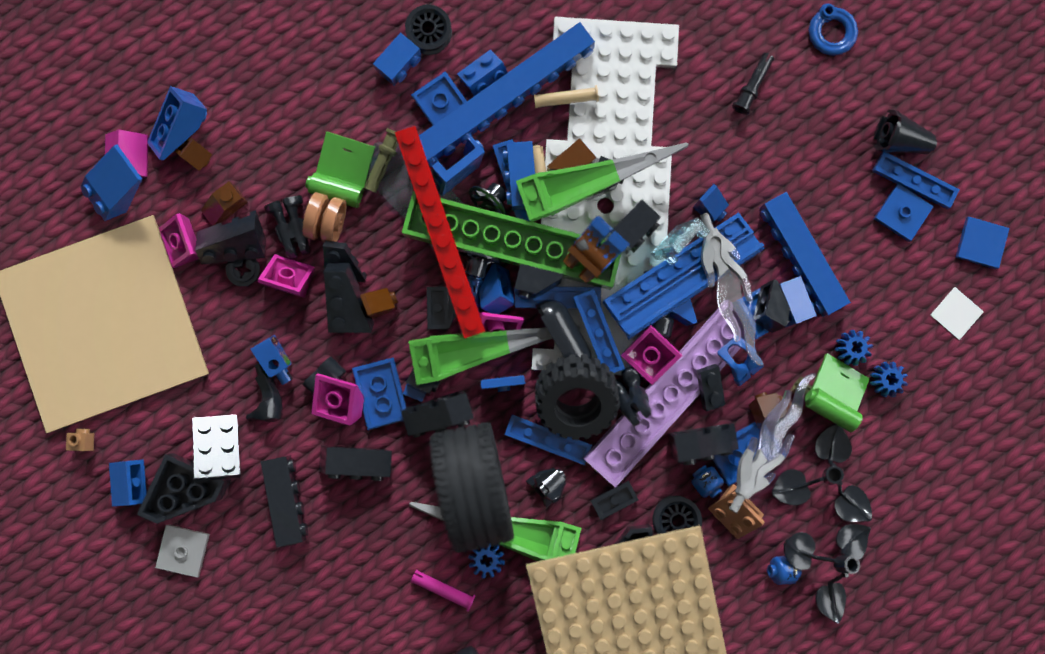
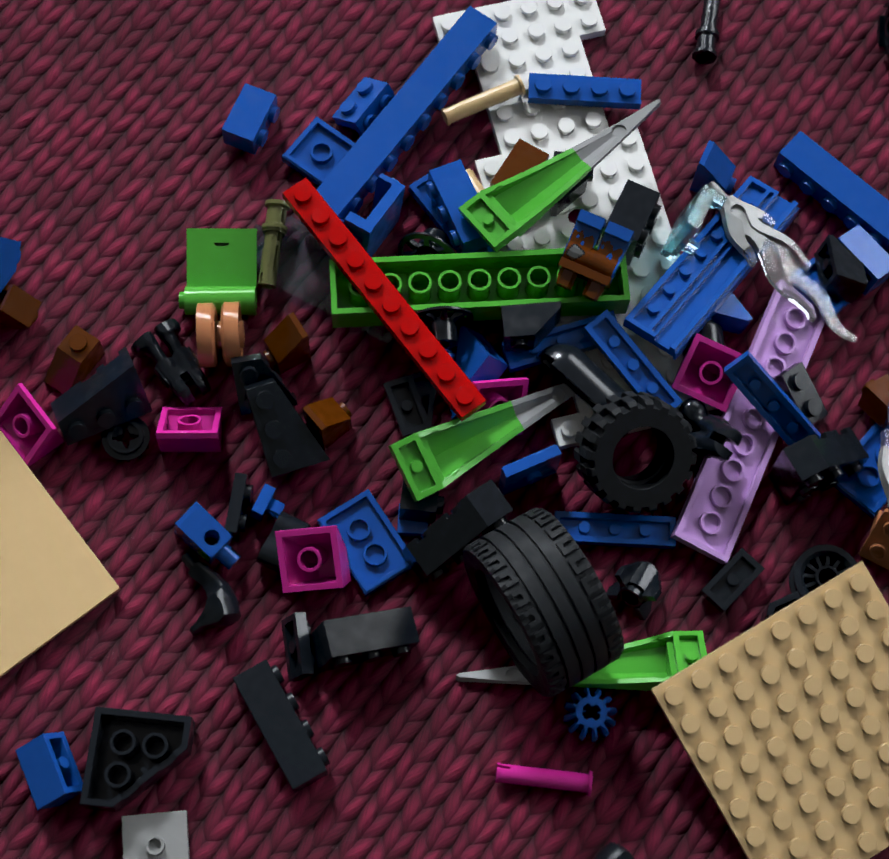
camera: 20 degrees left, 15 degrees down
(216, 448) = (164, 679): plate -> none
(305, 336) = (240, 495): none -> black plate
(310, 458) = (297, 646): none -> black plate
(320, 346) = (266, 504): none -> blue tile
(368, 239) = (287, 344): none -> reddish brown slope
(434, 12) = (280, 60): black wheel -> none
(642, 111) = (584, 91): none -> blue plate
(685, 391) = (769, 399): none -> blue plate
(707, 482) = (845, 516): blue head -> none
(743, 371) = (832, 362): blue piece -> none

